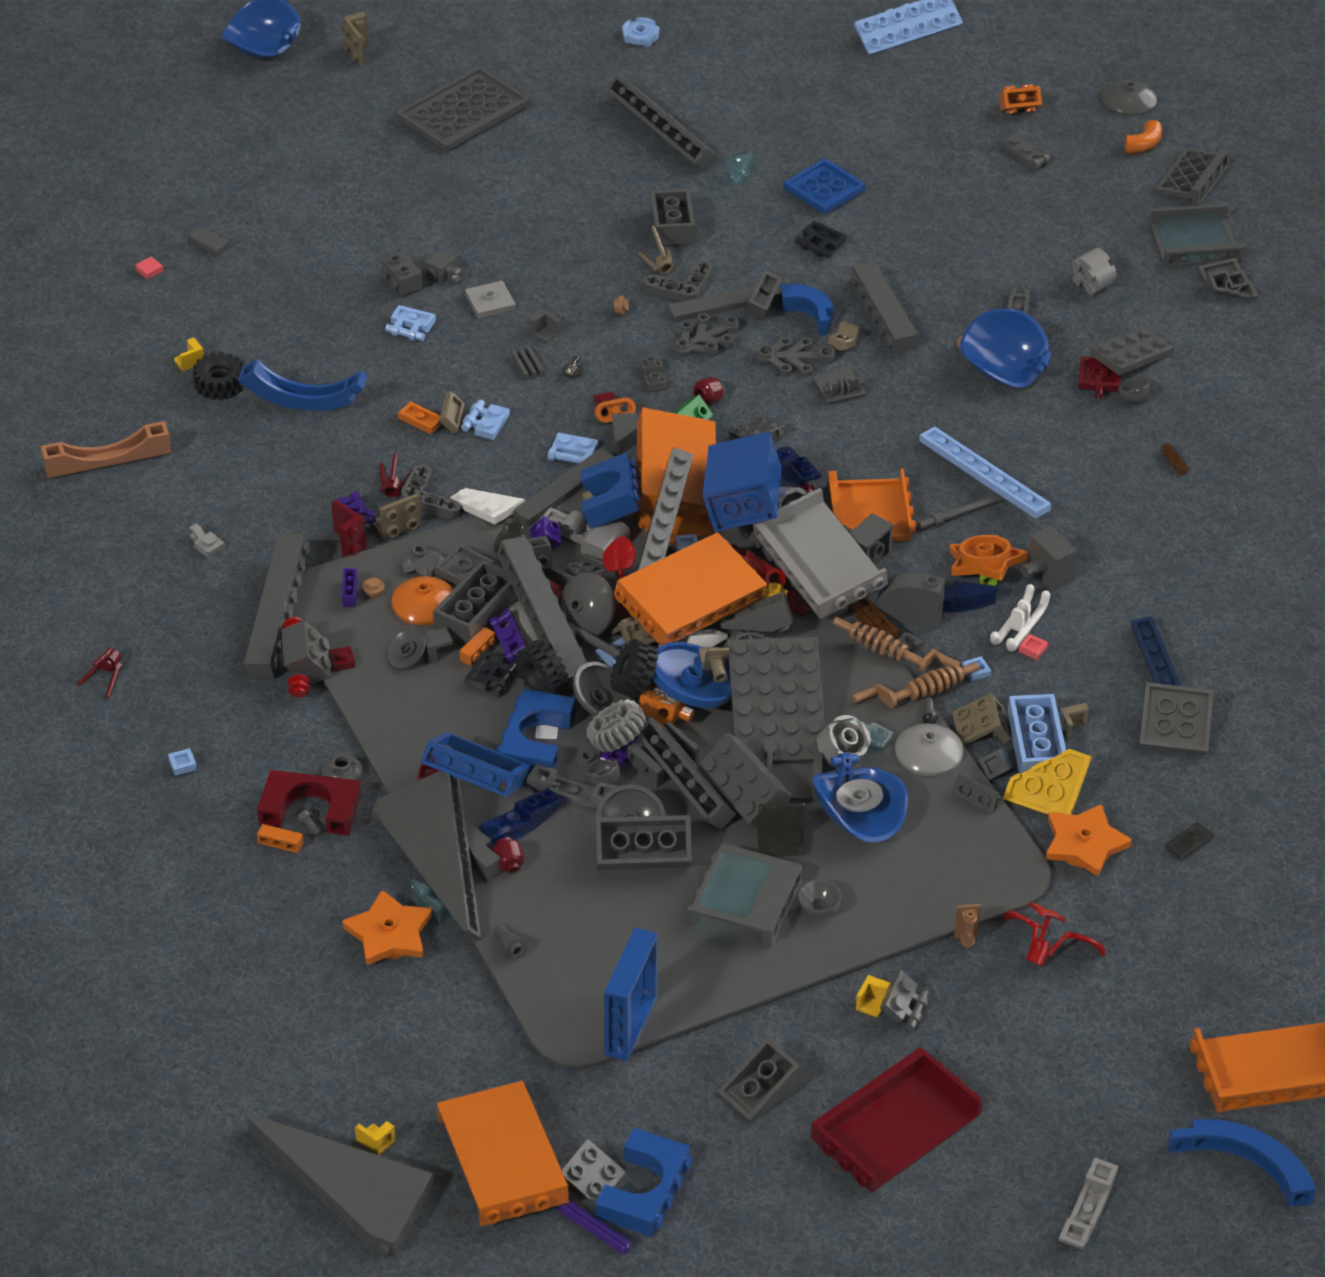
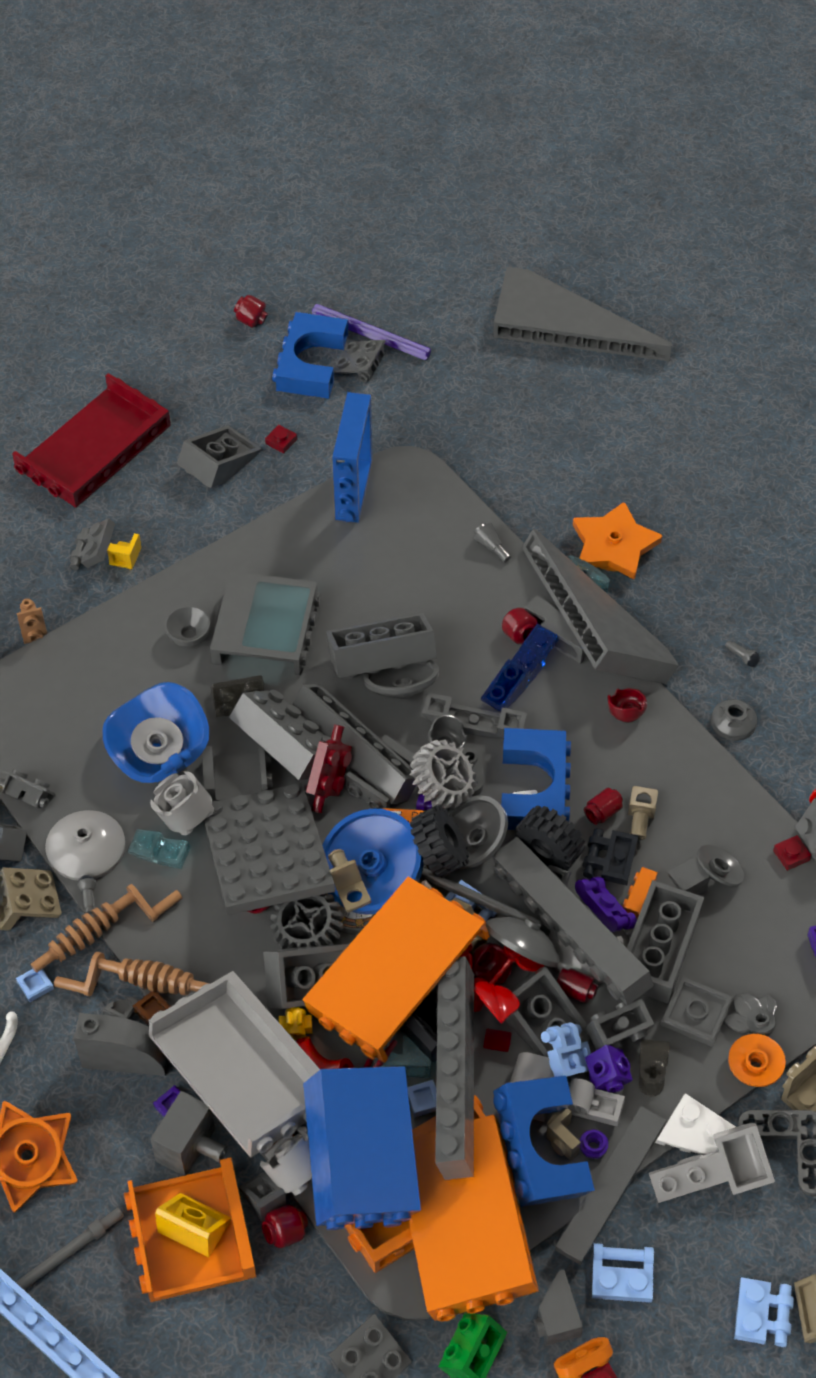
camera: 170 degrees right, 10 degrees up
(280, 838) = (764, 627): orange piece -> none
(286, 787) = (722, 681): dark red arch -> none
(373, 587) = (797, 962): medium nougat plate -> none
(374, 1137) = (557, 359): yellow panel -> none
(418, 597) = (725, 970): orange dish -> none
(433, 529) = (756, 1049): none -> orange dish
(454, 697) = (642, 811): none -> dark tan bracket
(473, 479) = (738, 1160): none -> light grey plate
(475, 763) = (590, 728): blue window -> none
(485, 705) = (603, 806): none -> dark red brick
(503, 1152) = (440, 353): orange panel -> none
(570, 504) = (597, 1137): none -> dark purple plate
(573, 541) = (568, 1057): none -> light blue plate
(694, 1097) = (281, 439): none -> dark red plate
(702, 1248) = (250, 311): none -> dark red head
(713, 733) = (329, 768): none -> dark red plate
(796, 468) = (299, 1266): clear blue slope -> none
(868, 497) = (191, 1223): none -> yellow slope
(968, 596) = (58, 1082): clear blue slope -> none

